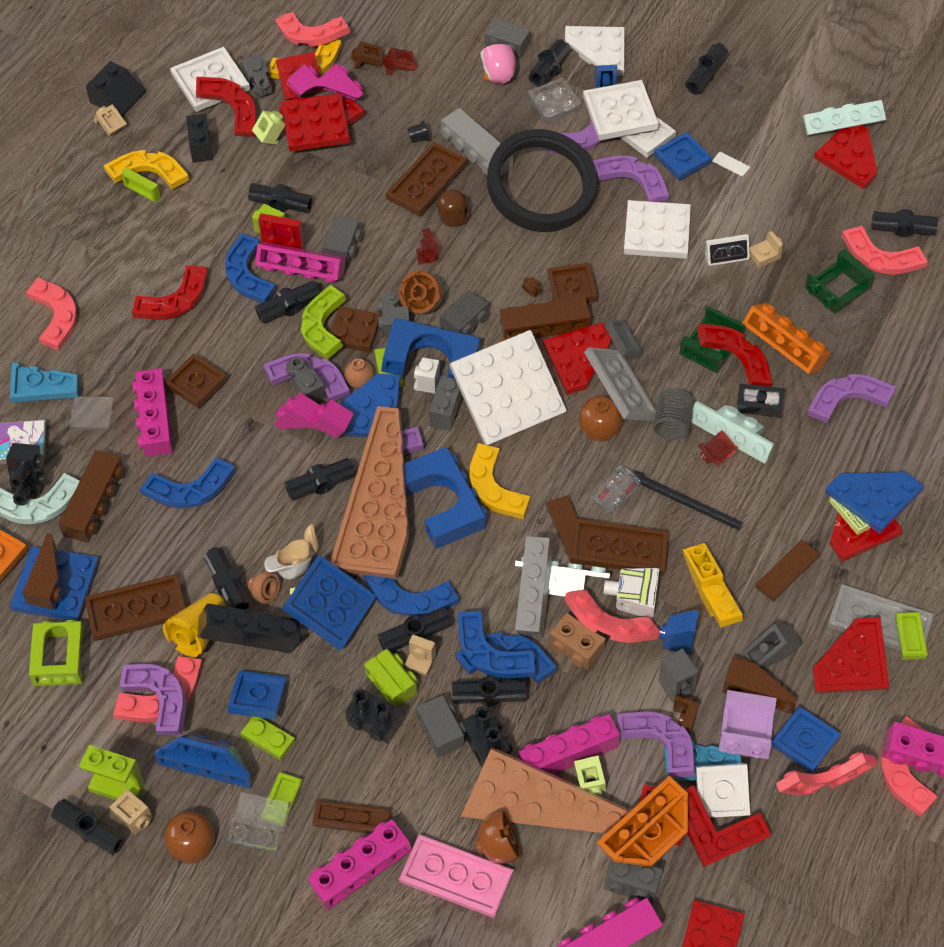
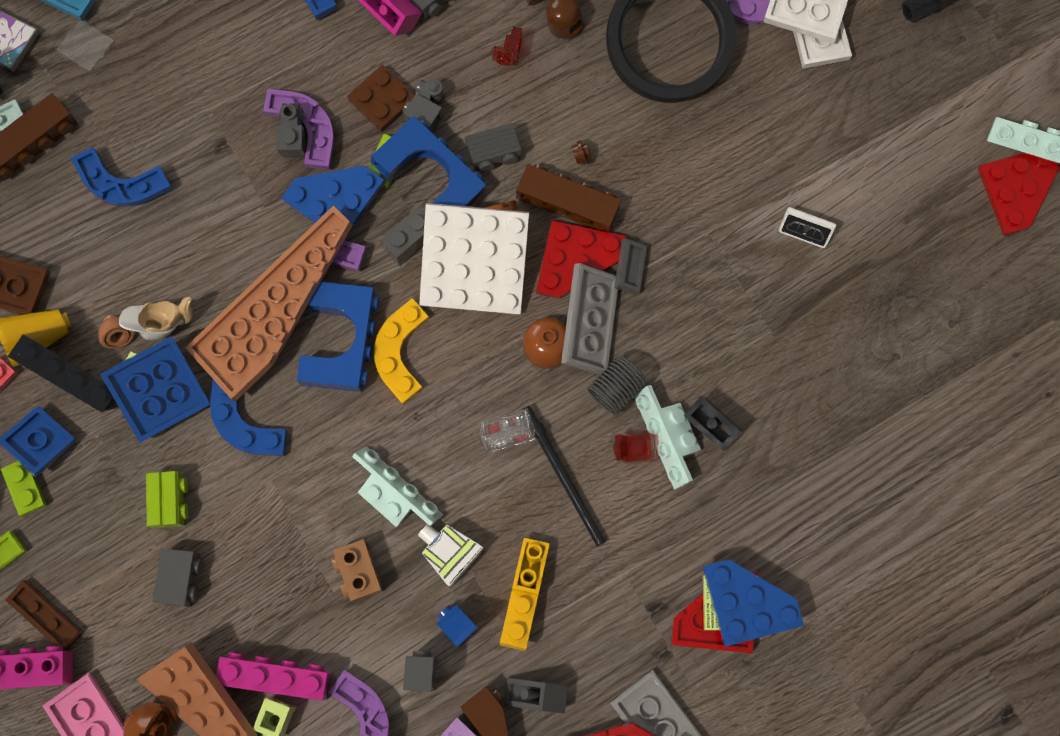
camera: 30 degrees right, 20 degrees up
(153, 412) = (135, 80): dark pink brick -> none
(196, 380) = (196, 68): reddish brown plate -> none
(226, 579) = (87, 303): black piece -> none
(287, 302) = (336, 30): black piece -> none
(305, 413) = (271, 178): dark pink arch -> none
(314, 319) = (350, 63): lime plate -> none
(319, 479) = (239, 246): black piece -> none
(358, 373) = (353, 151): nougat brick -> none
(374, 716) = (124, 529): black brick -> none
(421, 292) = (464, 98): dark orange cylinder -> none
(421, 655) = (205, 495): tan bracket -> none
(427, 375) = (412, 194): white brick -> none
(427, 624) = (203, 462): black piece -> none
(483, 733) = (208, 619): black brick -> none
(487, 658) = (257, 535): blue plate -> none
(504, 691) = (229, 562): black piece -> none
(534, 586) = (349, 494): light grey brick -> none
(543, 665) = (295, 535): blue plate -> none
(564, 519) = (436, 443): reddish brown tile -> none
(572, 282) = (623, 173): reddish brown plate -> none
(618, 546) = (466, 495): reddish brown plate -> none
(619, 629) = (391, 575): coral plate -> none
(629, 167) = (779, 76): medium lavender plate -> none
(657, 229) = (754, 159): white plate -> none
(682, 156) = (839, 88): blue plate -> none
(688, 710) = (404, 718): reddish brown bracket -> none
(705, 356) = (730, 299): dark green panel -> none
(731, 164) = (885, 125): white sticker -> none
(733, 341) = (740, 354): red plate -> none
(767, 251) = (847, 251): tan bracket -> none
(787, 338) = (791, 368): orange brick -> none
(787, 570) = (612, 620): reddish brown tile -> none
(852, 268) = (920, 328): dark green panel -> none
(853, 386) = (814, 458): medium lavender plate -> none
(882, 261) = (954, 331): coral plate -> none
(904, 223) = (1014, 305): black piece -> none

